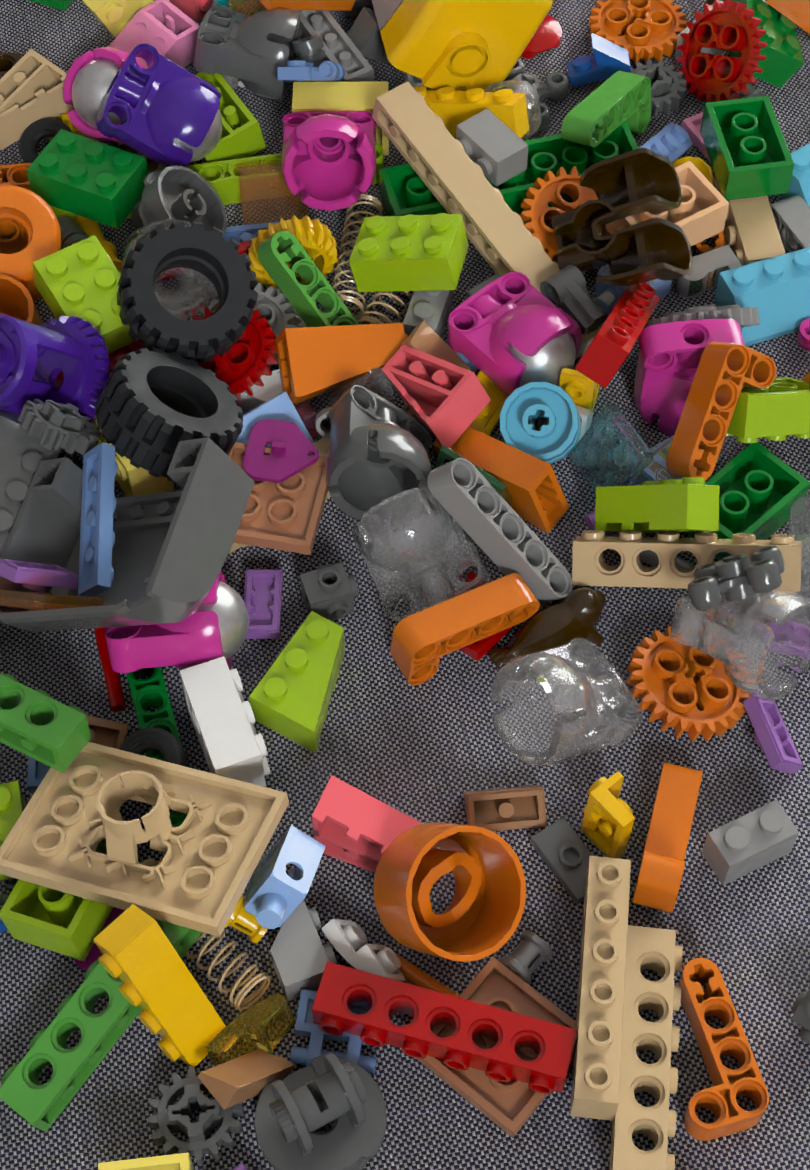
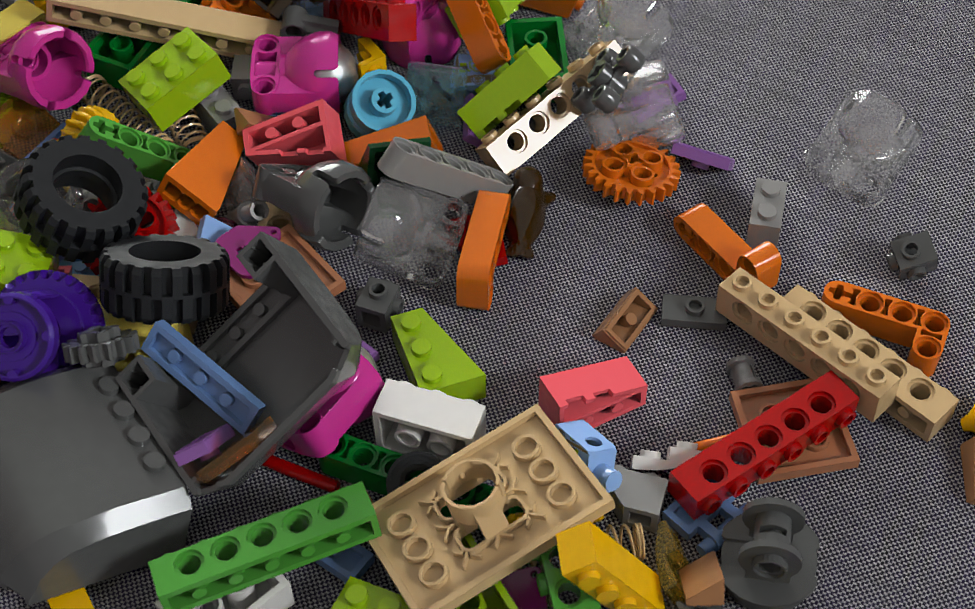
camera: 50 degrees left, 5 degrees down
(486, 896) = (678, 372): orange piece -> none
(562, 704) = (591, 238): clear piece -> none
(607, 817) = (692, 266): yellow bracket -> none

